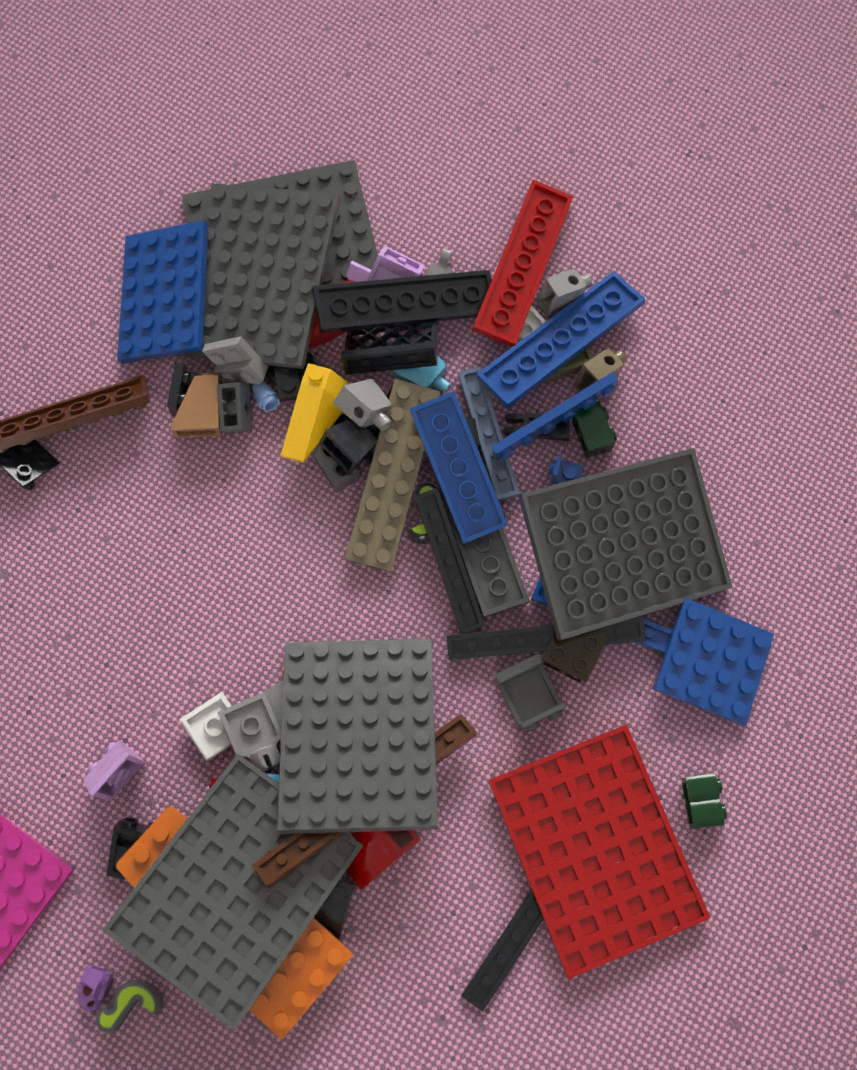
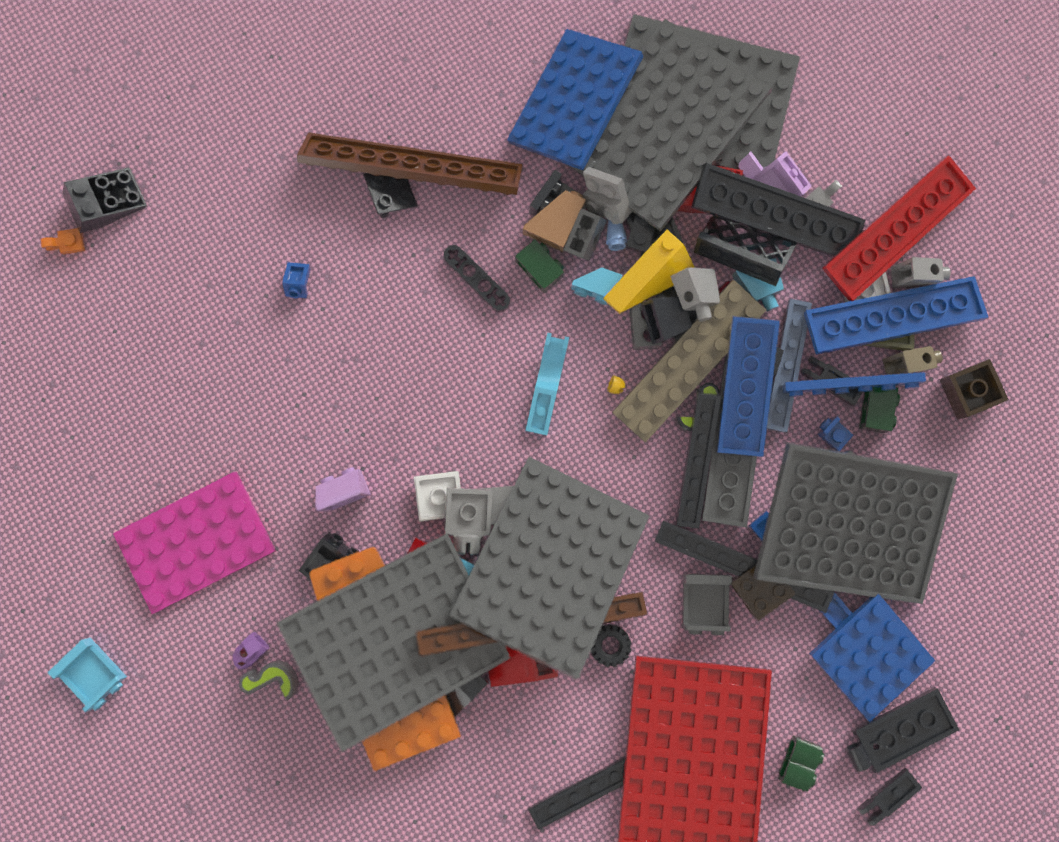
camera: 25 degrees right, 10 degrees up
(149, 504) = (479, 276): none -> black beam
(206, 458) = (539, 265): none -> dark green brick
(267, 449) = (596, 284): none -> medium azure slope
(268, 565) = (547, 384): none -> medium azure piece
(334, 532) = (616, 385): none -> yellow hinge
(469, 773) = (624, 646): none -> black tyre
(668, 368) = (974, 389): none -> dark brown brick
(781, 718) = (901, 732): none -> black hinge
(806, 786) = (891, 796): none -> black hinge

